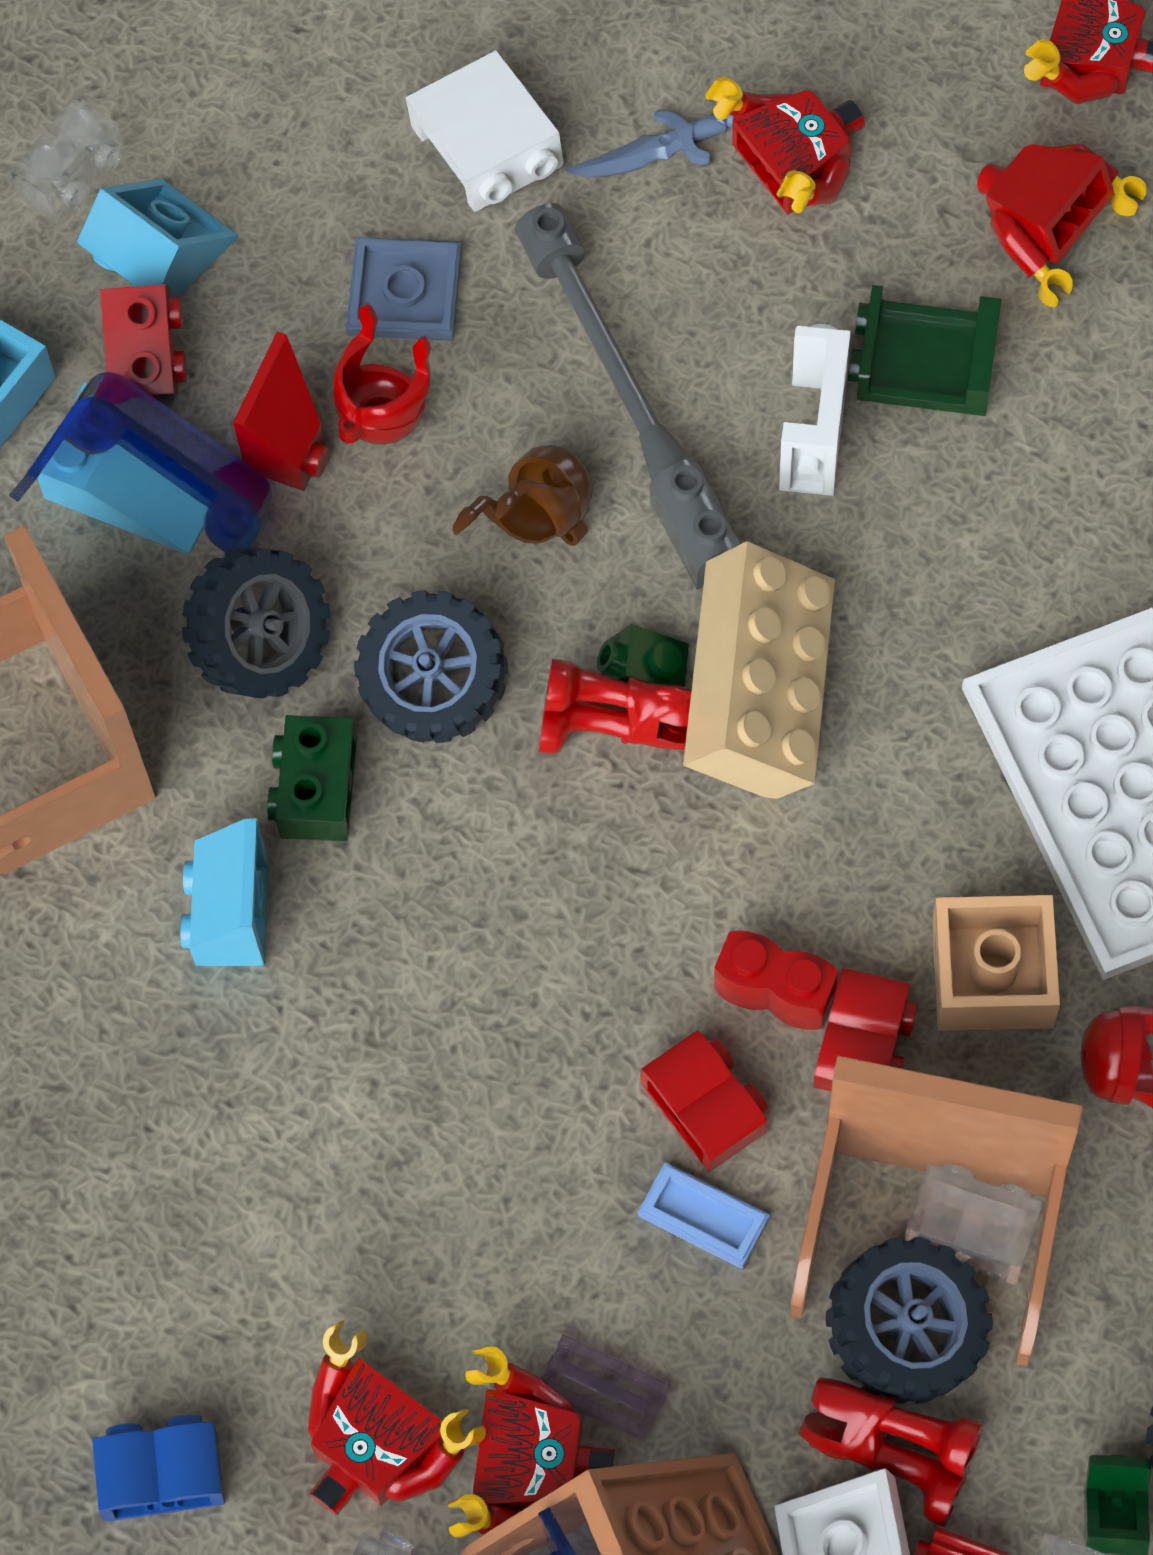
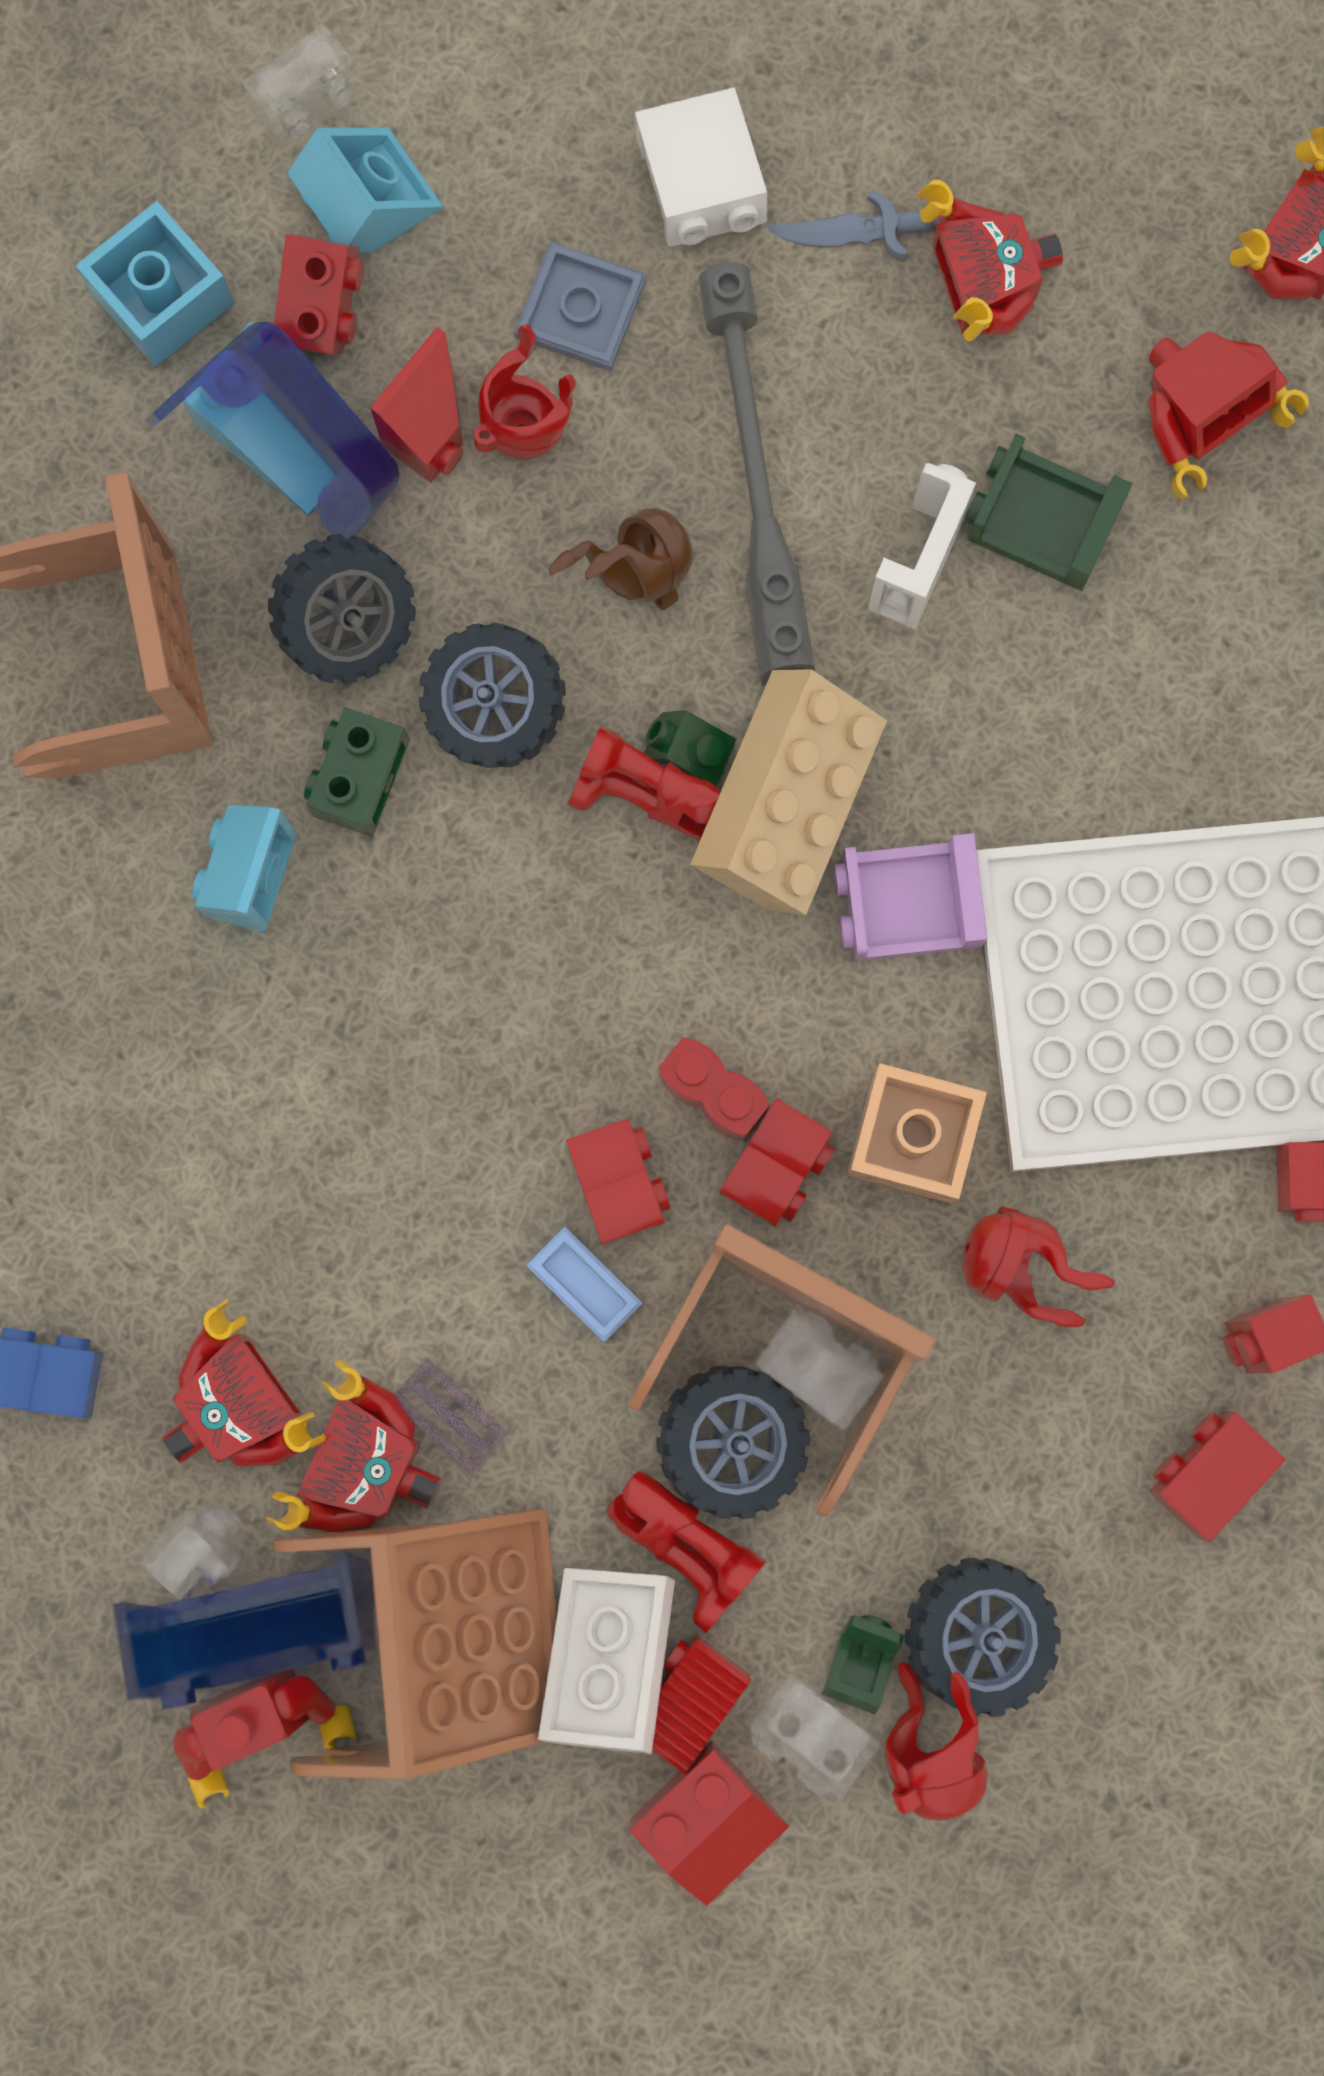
camera: 15 degrees right, 15 degrees up
(916, 746) = (911, 899): none -> lavender panel

